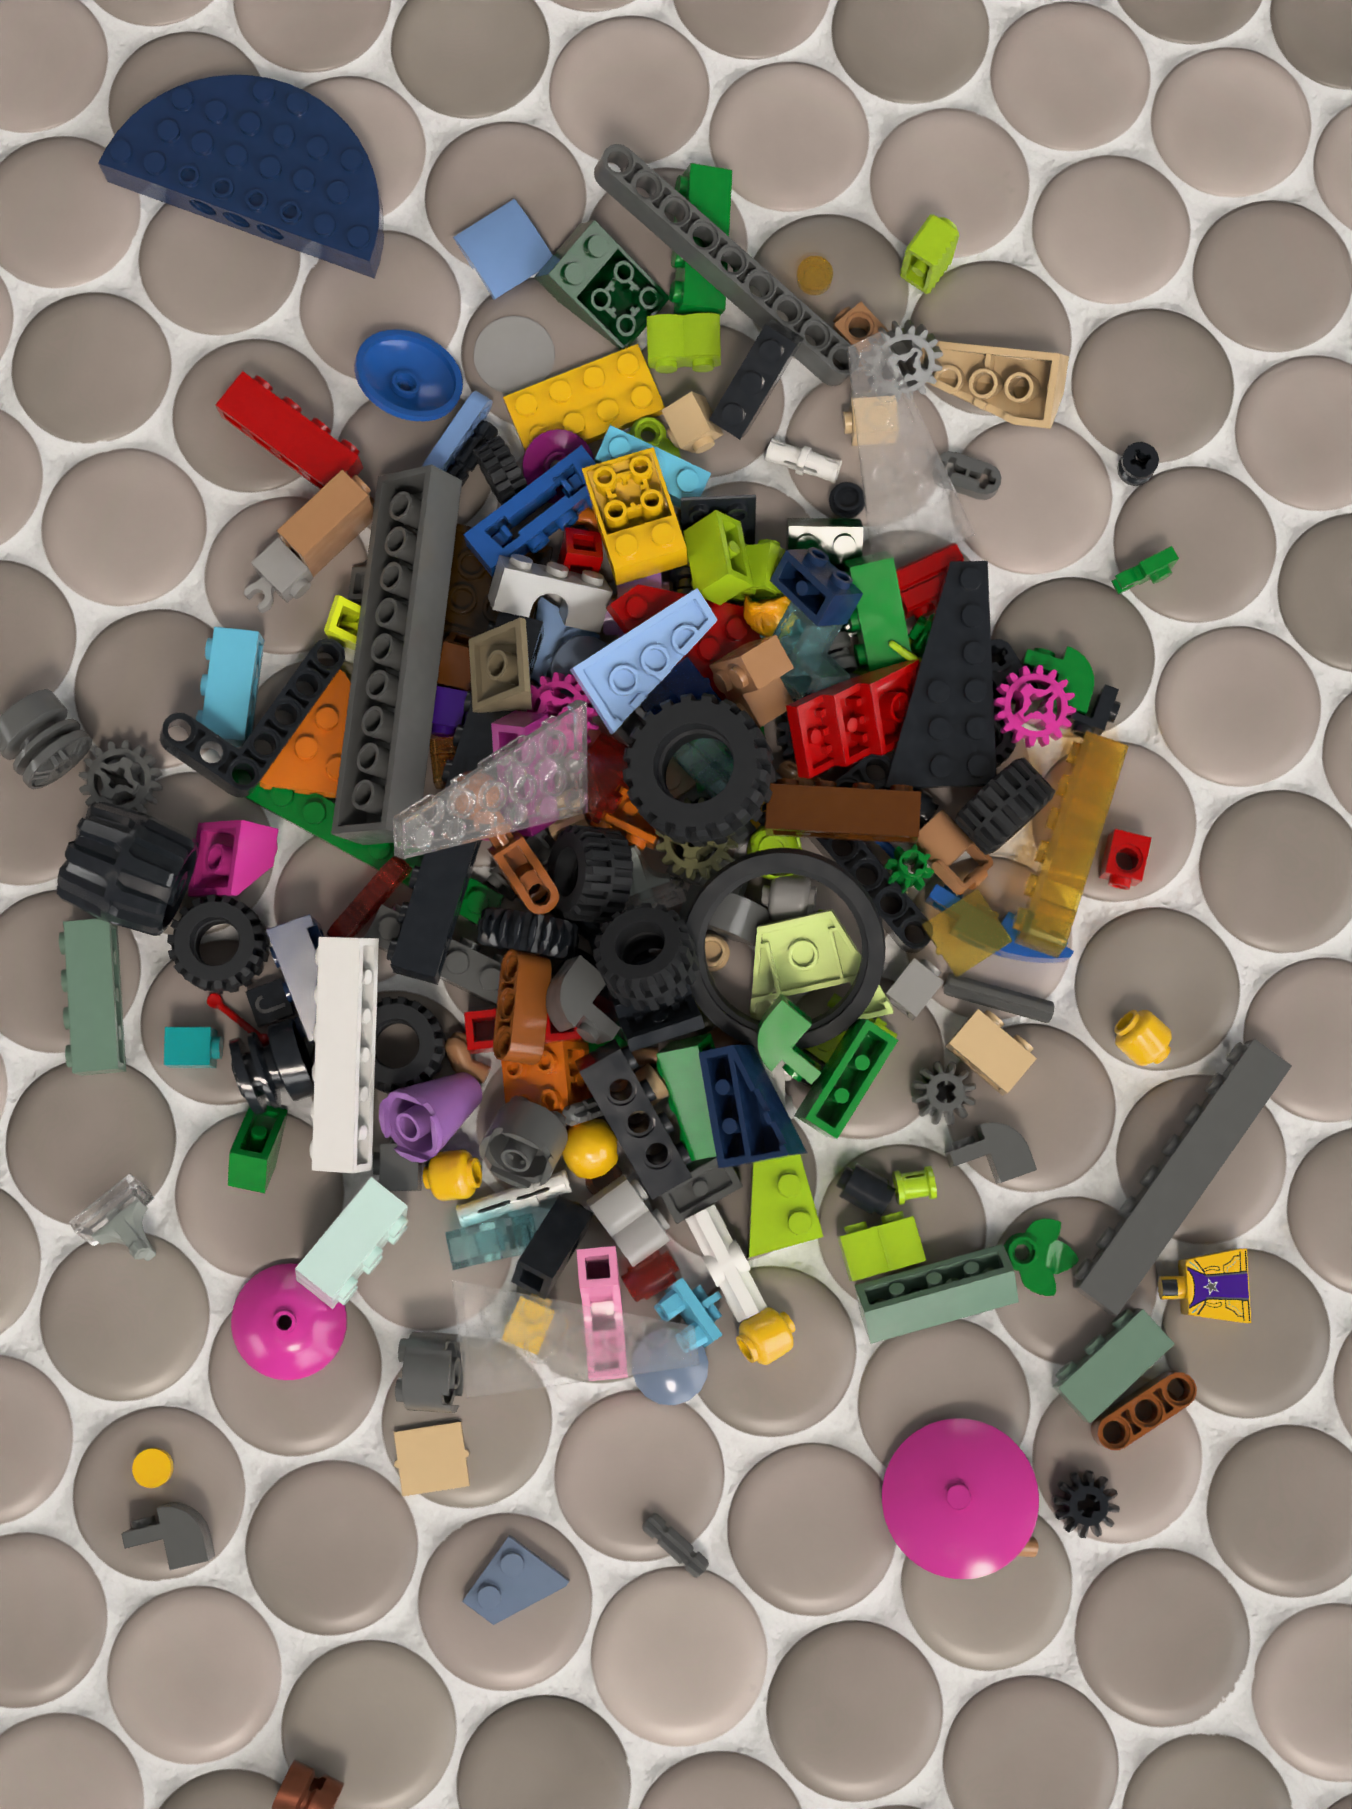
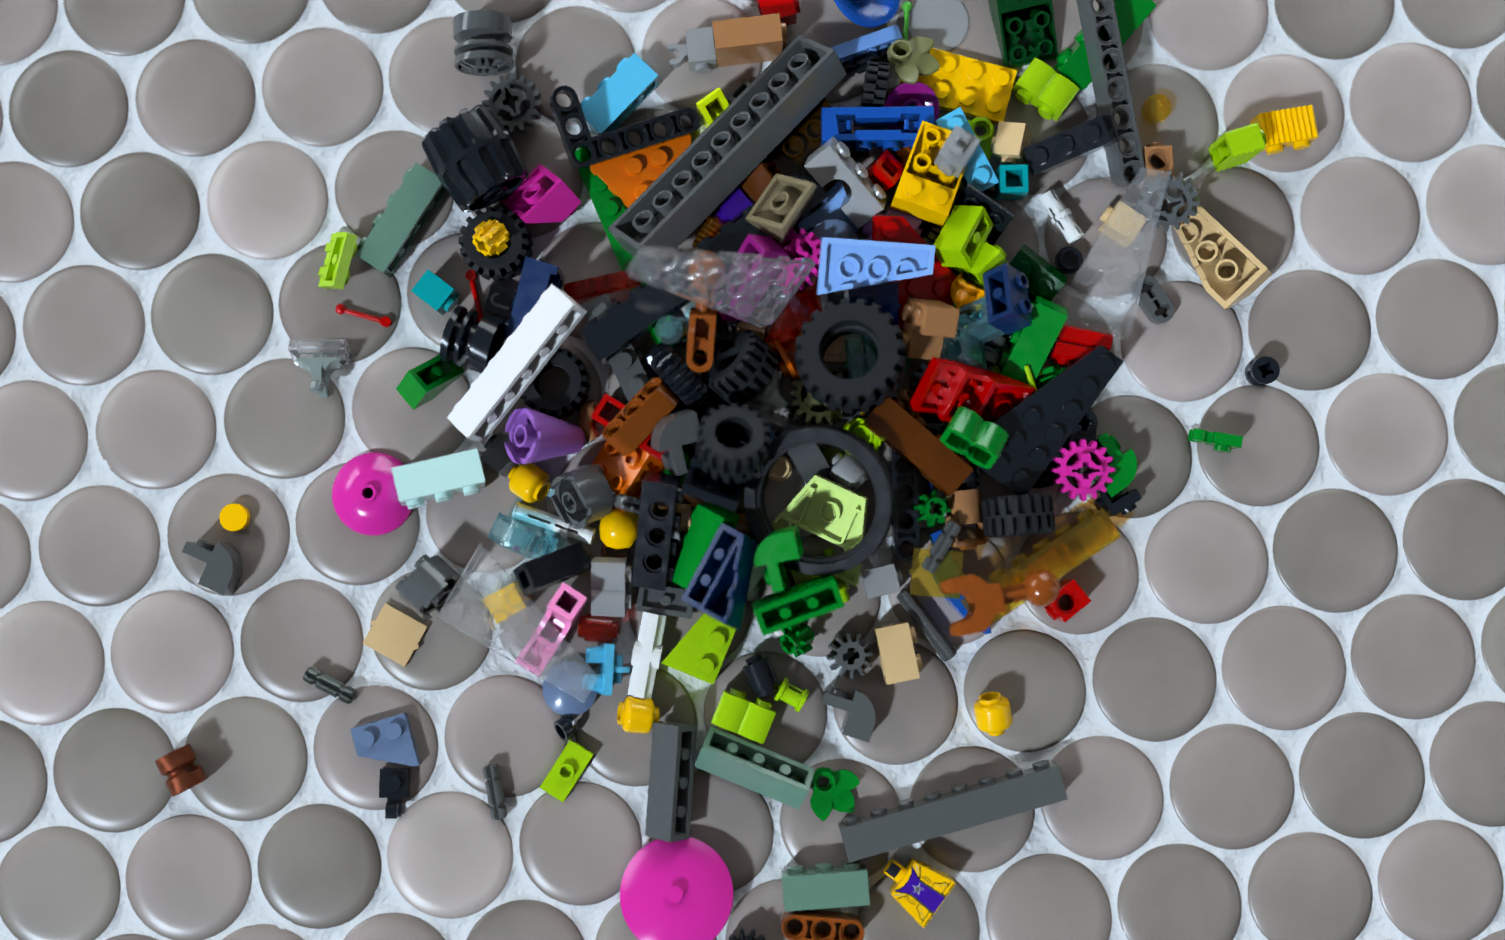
camera: 40 degrees right, 5 degrees up
(56, 1094) = (336, 266): none -> lime plate
(157, 1122) = (384, 321): none -> red hinge
(211, 939) = (490, 237): none -> yellow gear
(402, 1571) = (330, 685): none -> pearl dark grey axle
(469, 363) = (907, 7): none -> bright green hinge
(485, 888) = (672, 329): none -> clear light blue brick
(522, 410) = (915, 58): none -> olive plate
(558, 1626) = (394, 785): none -> black plate
(645, 474) = (956, 152): none -> light grey brick
(699, 1414) = (565, 728): none -> black hinge
(725, 463) = (1012, 182): none -> teal brick
(736, 1459) = (566, 770): none -> lime plate
(858, 1378) = (671, 780): none -> dark grey brick
(874, 1119) = (797, 639): none -> green gear
(895, 757) = (974, 437): none -> green brick
(950, 900) = (941, 546): none -> dark grey axle
(966, 195) = (1288, 128): none -> yellow brick
(1043, 916) = (987, 600): none -> dark orange piece

